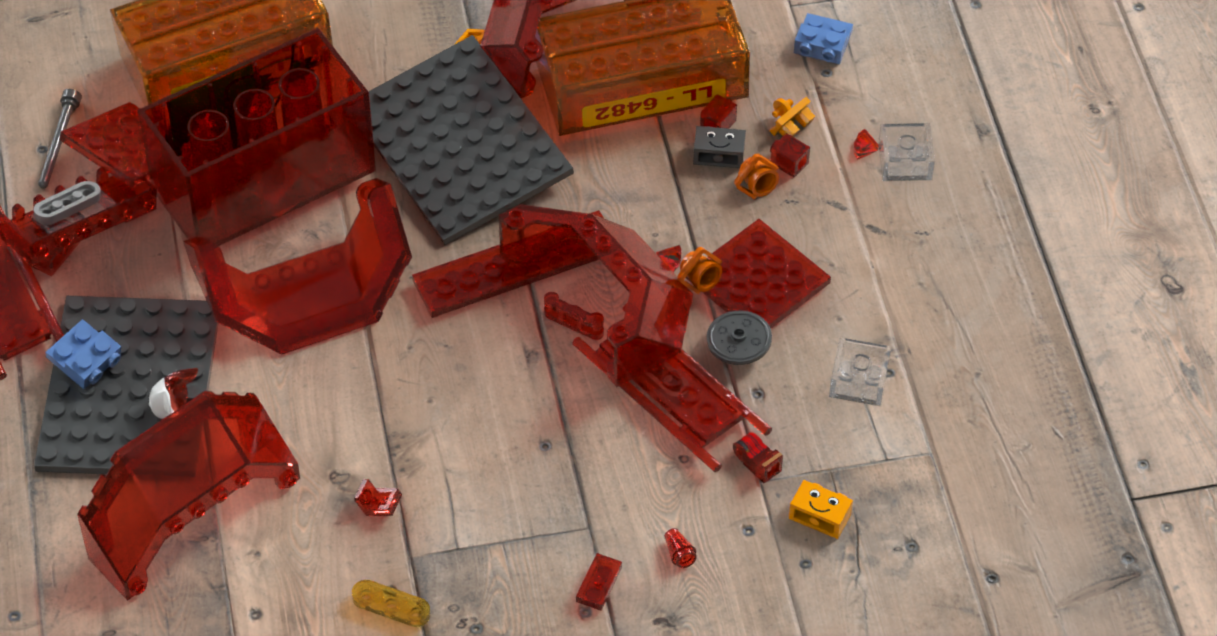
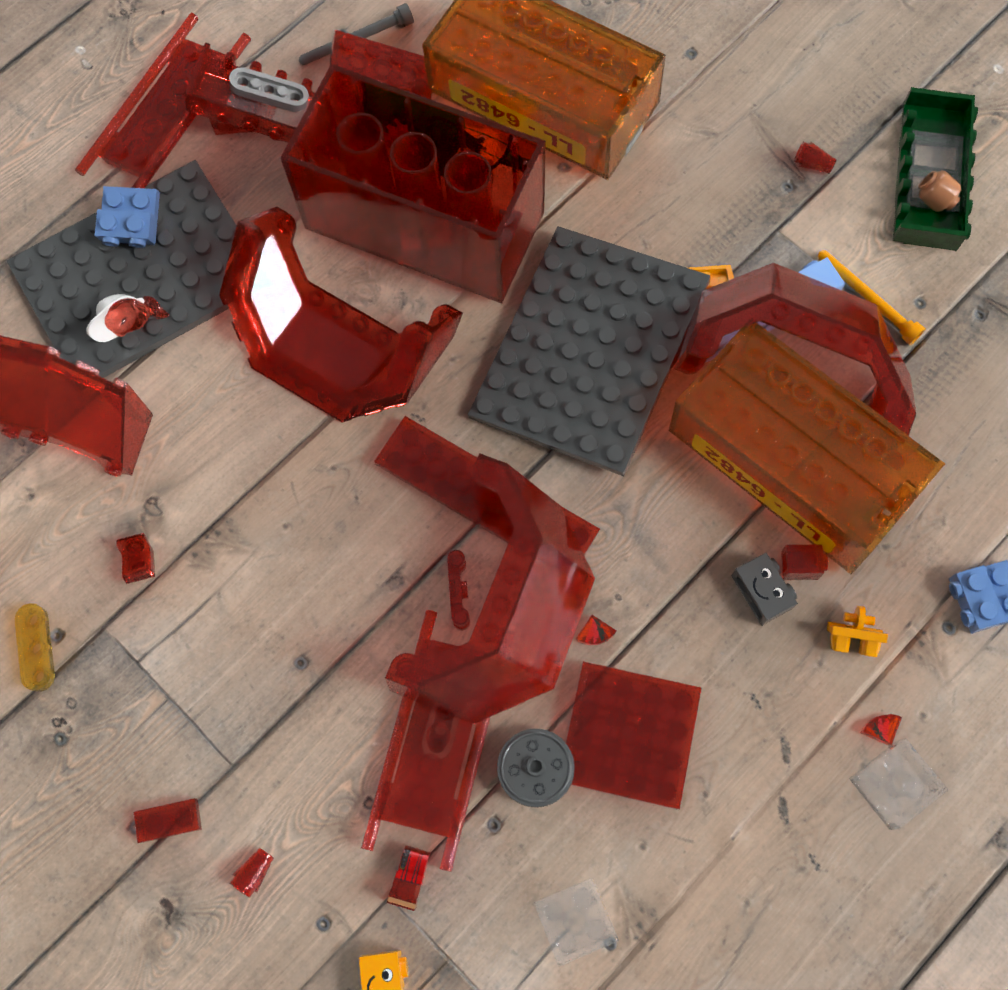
camera: 60 degrees right, 20 degrees up
(700, 270) = (582, 677): orange piece -> none
(759, 175) = (753, 652): orange piece -> none
(790, 155) = (806, 664): clear red brick -> none

